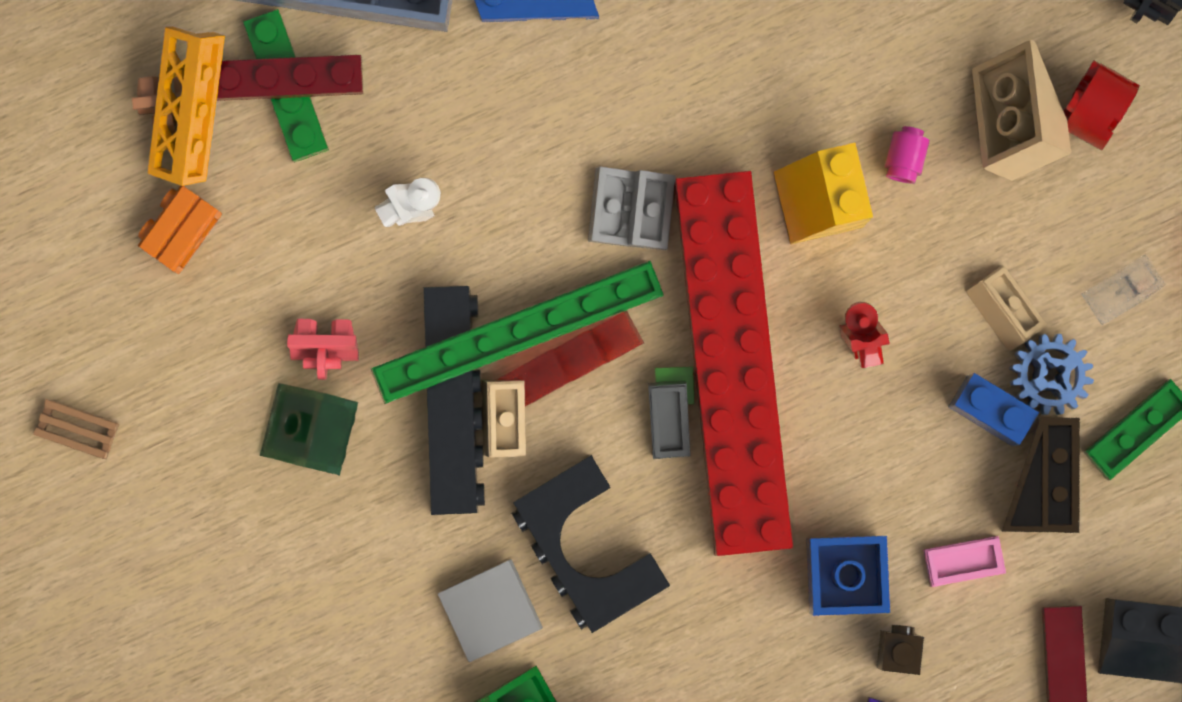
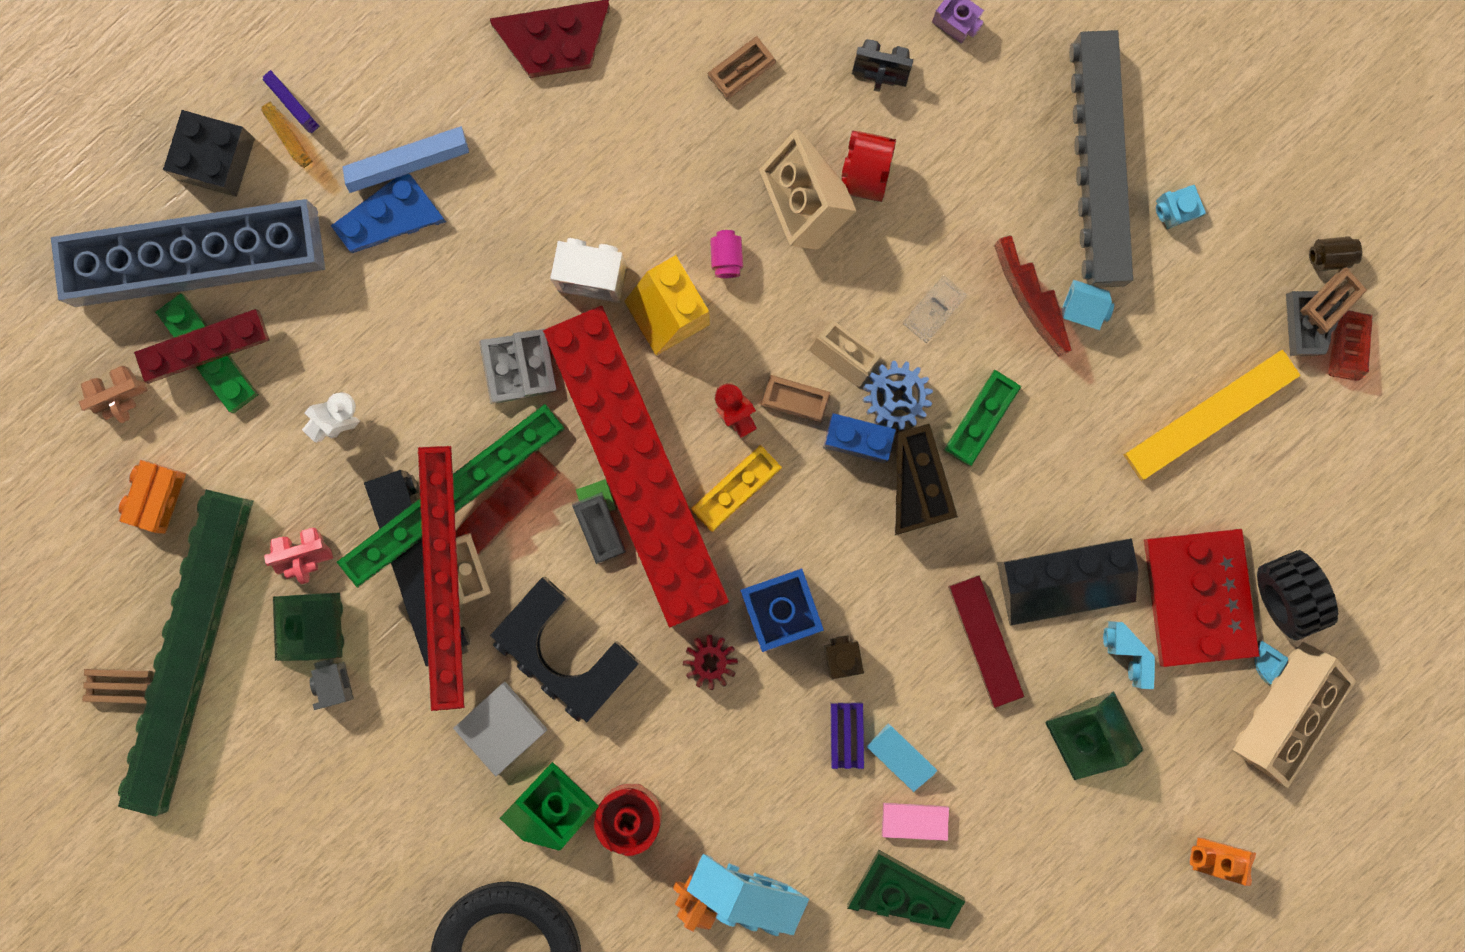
camera: 15 degrees left, 0 degrees up
(165, 415) = (185, 653): none -> clear green brick
(193, 109) = (129, 394): light orange fence -> none
(315, 500) = (330, 684): none -> dark grey brick
(480, 421) = (441, 578): none -> red tile
(747, 126) = (588, 270): none -> white brick
(760, 615) = (720, 664): none -> dark red gear
(836, 422) = (736, 488): none -> yellow tile
(934, 342) = (795, 399): none -> medium nougat tile
(964, 561) = (874, 568): bright pink tile -> none

